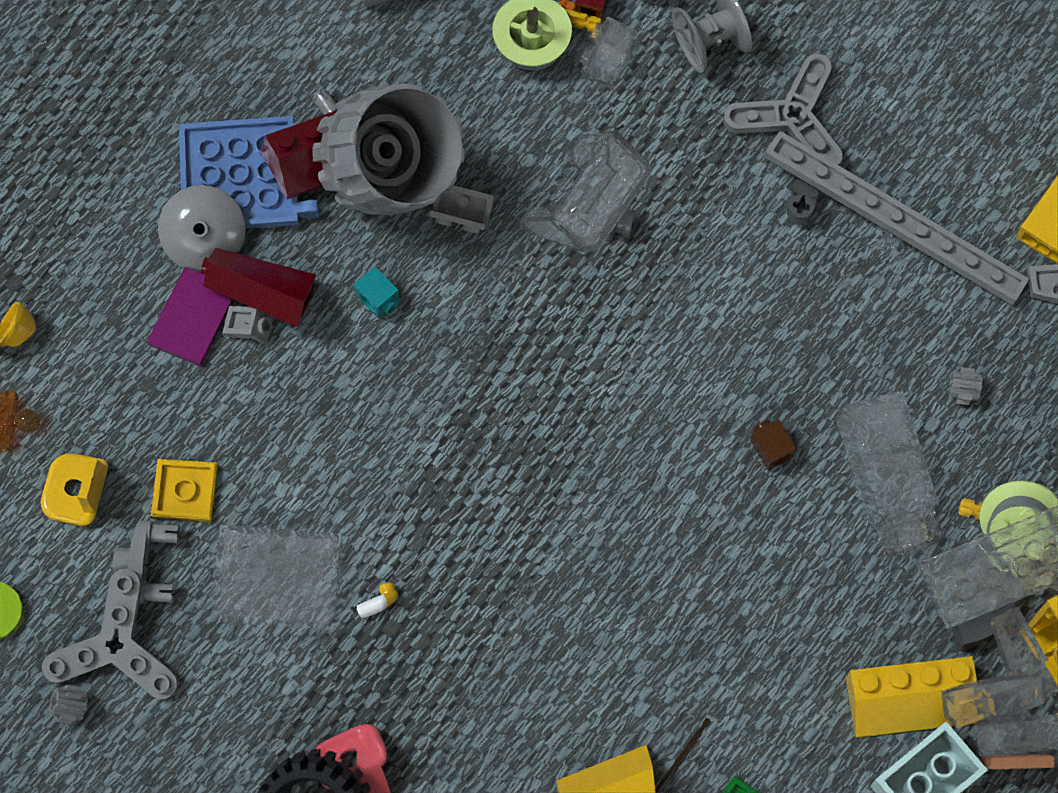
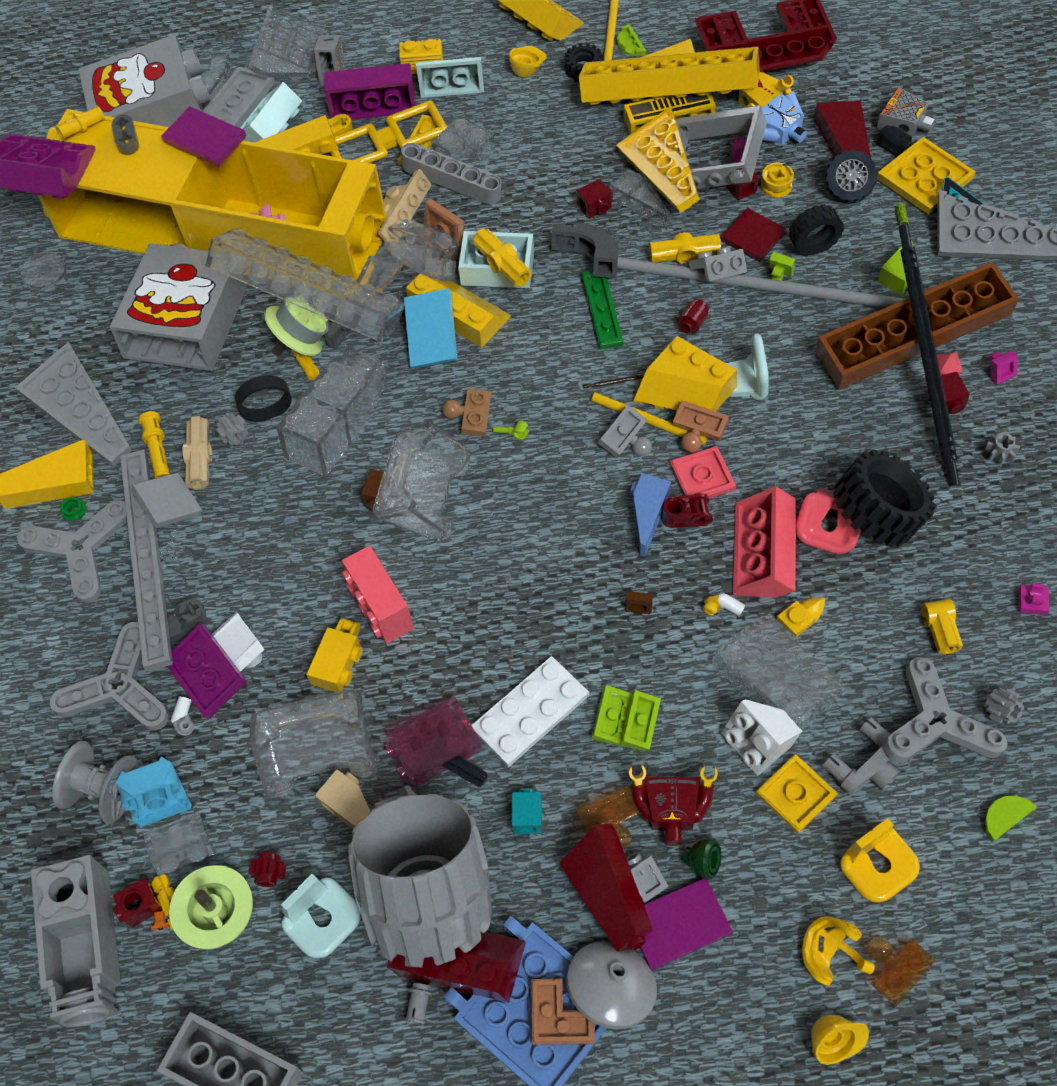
camera: 130 degrees left, 10 degrees down
(68, 376) = (819, 961): none -> yellow helmet
(180, 747) = (941, 619): none -> yellow piece
(212, 374) = (704, 858): none -> dark green brick
(222, 168) = (551, 1023): none -> nougat tile
(240, 502) = (760, 734): none -> white slope
(273, 392) = (672, 801): none -> dark red torso
(305, 653) = (801, 615): none -> yellow plate
(314, 348) = (610, 810): none -> clear orange plate
(371, 434) = (626, 718): none -> lime slope
(389, 688) = (765, 544): none -> coral slope
(449, 536) = (638, 602): none -> reddish brown tile
(453, 375) = (530, 711): none -> white plate
(460, 83) = (300, 926): none -> light aqua piece
(485, 663) = (688, 511): none -> dark red piece
(498, 282) = (436, 743): none -> clear pink piece
(509, 718) = (703, 473): none -> coral tile
(513, 184) = (343, 798): none -> tan slope
(525, 92) = (267, 869): none -> dark red gear
(526, 636) = (648, 504): none -> medium blue slope
(555, 762) = (699, 422): none -> nougat plate
(612, 736) = (651, 419): none -> yellow piece
(619, 696) = (624, 432): none -> light grey plate
(648, 278) = (336, 657): none -> yellow brick
(665, 59) = (152, 792): none -> medium azure slope
(665, 345) = (376, 595): none -> coral brick
(716, 135) = (180, 717): none -> arm
(716, 615) = (518, 431): none -> lime hand
(738, 179) = (205, 671): none -> magenta tile
(738, 469) = (419, 480): none -> clear windscreen
(739, 214) = (239, 642): none -> white slope
(777, 599) = (474, 412): none -> medium nougat plate
(901, 636) = (430, 328): none -> medium azure tile
(909, 760) = (502, 257): none -> yellow piece
(937, 274) = (166, 500): none -> light grey tile
(966, 428) = (257, 384): none -> black tyre
(969, 341) = (197, 453): none -> tan piece
(982, 173) = (81, 562): none -> light grey piece
(1013, 199) = (71, 503): none -> green plate
(1026, 321) = (153, 437): none -> yellow pin

